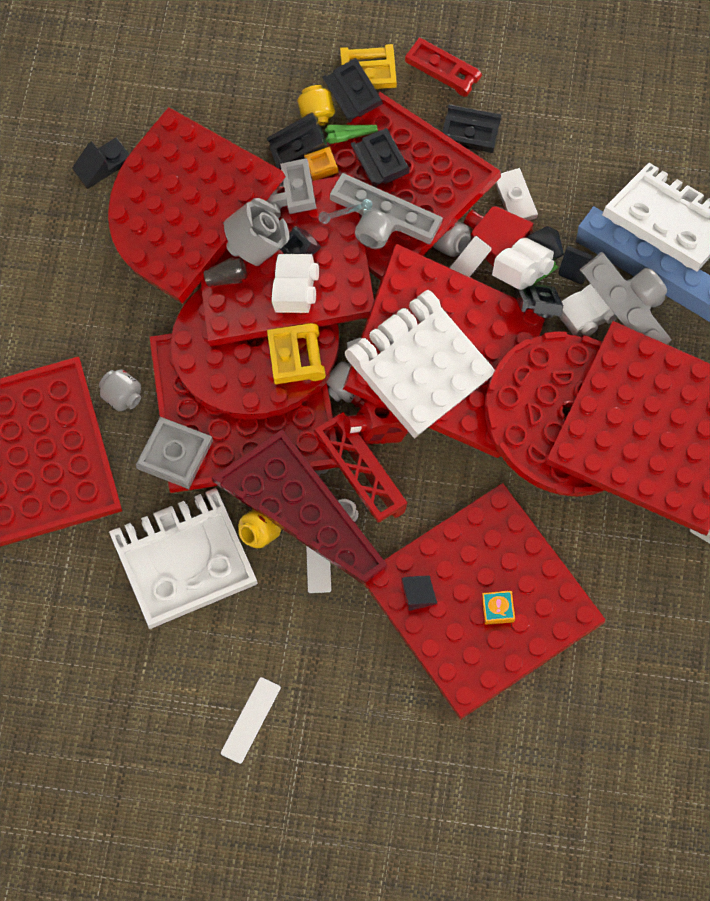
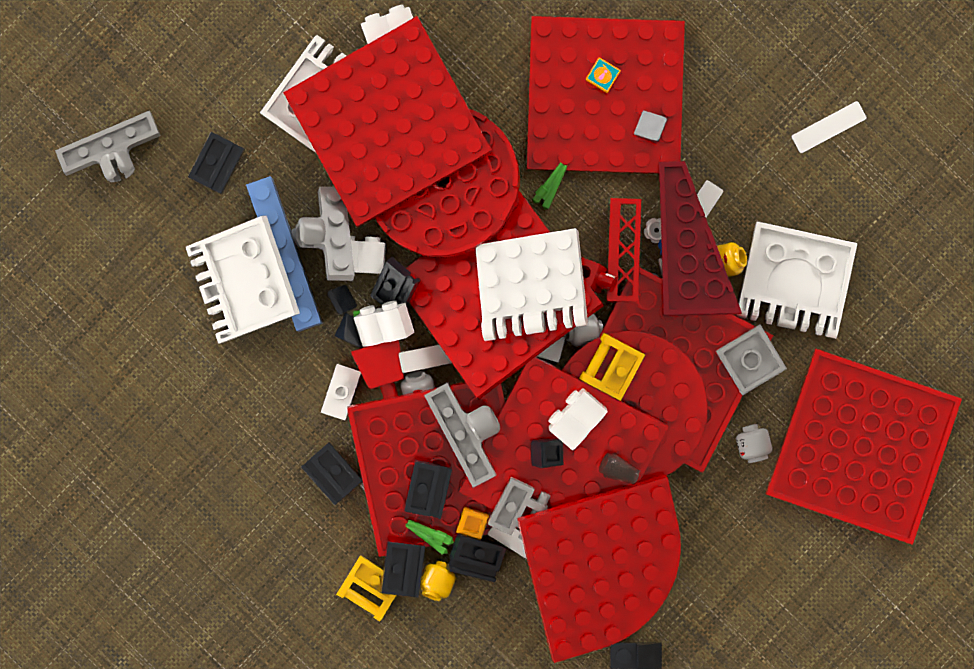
camera: 145 degrees left, 20 degrees up
(255, 232) = (577, 480): light grey brick -> none
(324, 217) = (509, 463): clear light blue hinge -> none
(443, 66) = (312, 545): red plate -> none
(468, 480) = (550, 187): none -> bright green piece

